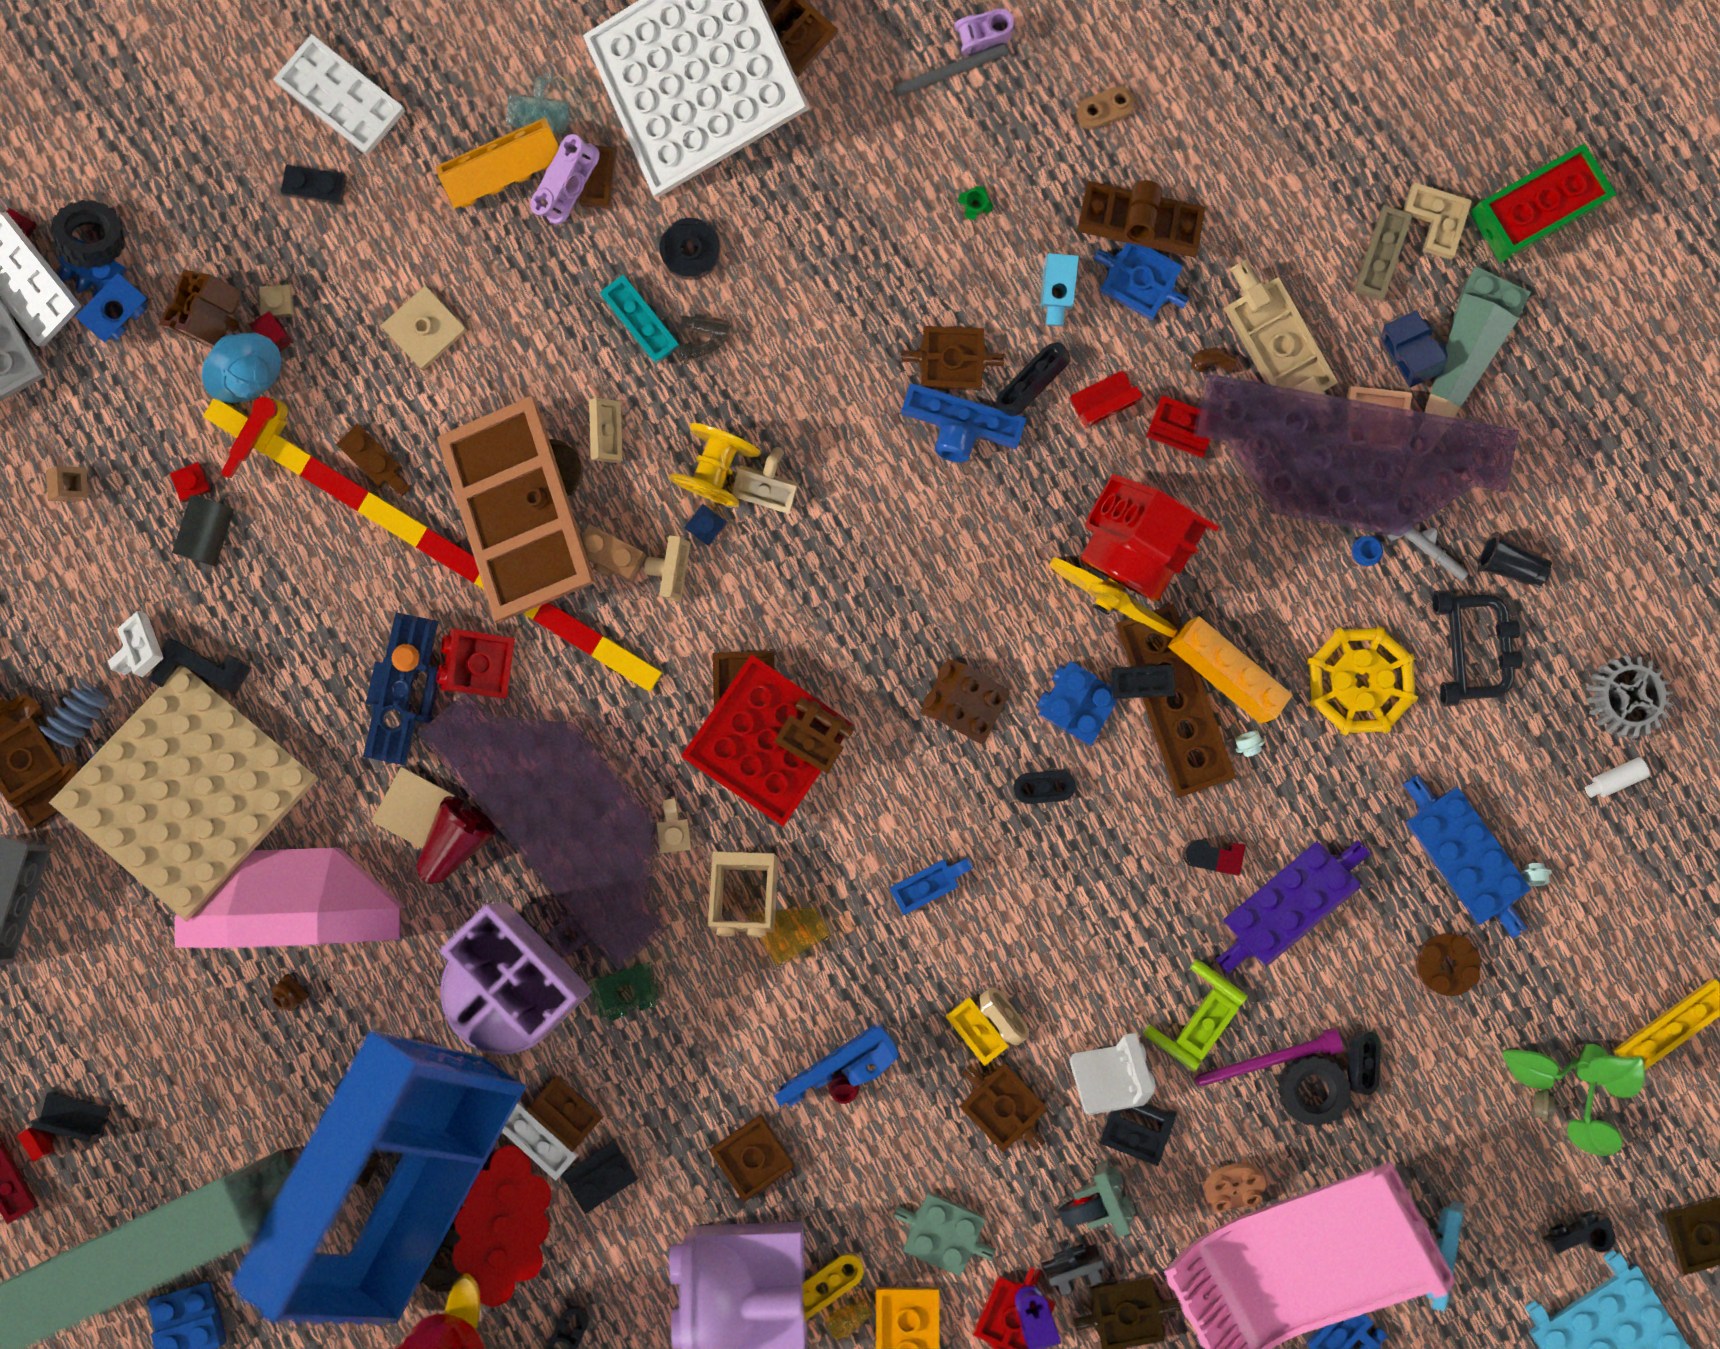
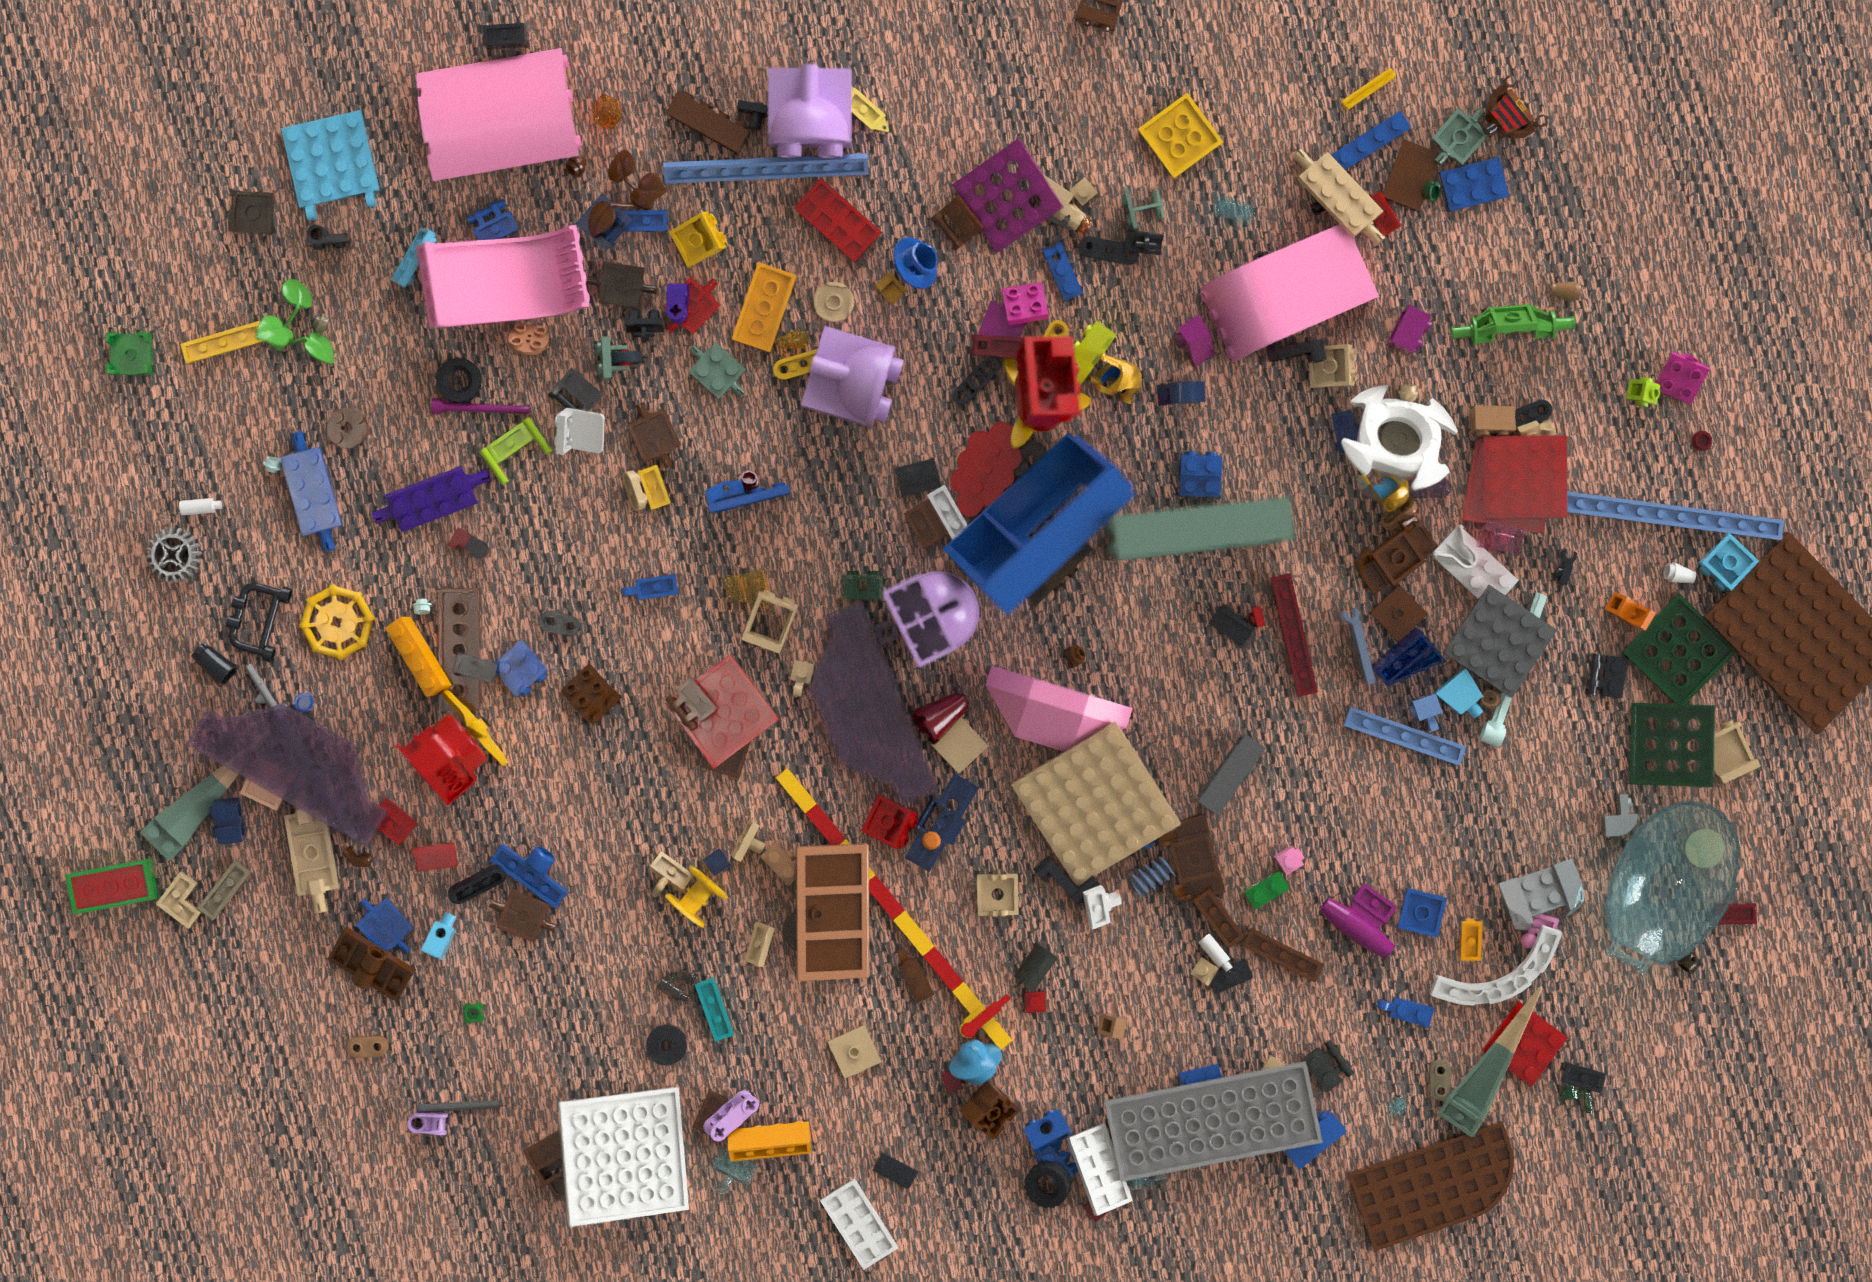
camera: 165 degrees left, 5 degrees up
(270, 608) = (1007, 905): none -> tan piece
(277, 300) = (942, 1101): tan plate -> none
(752, 1157) = (819, 457): reddish brown plate -> none
(1364, 1062) = (421, 386): black plate -> none

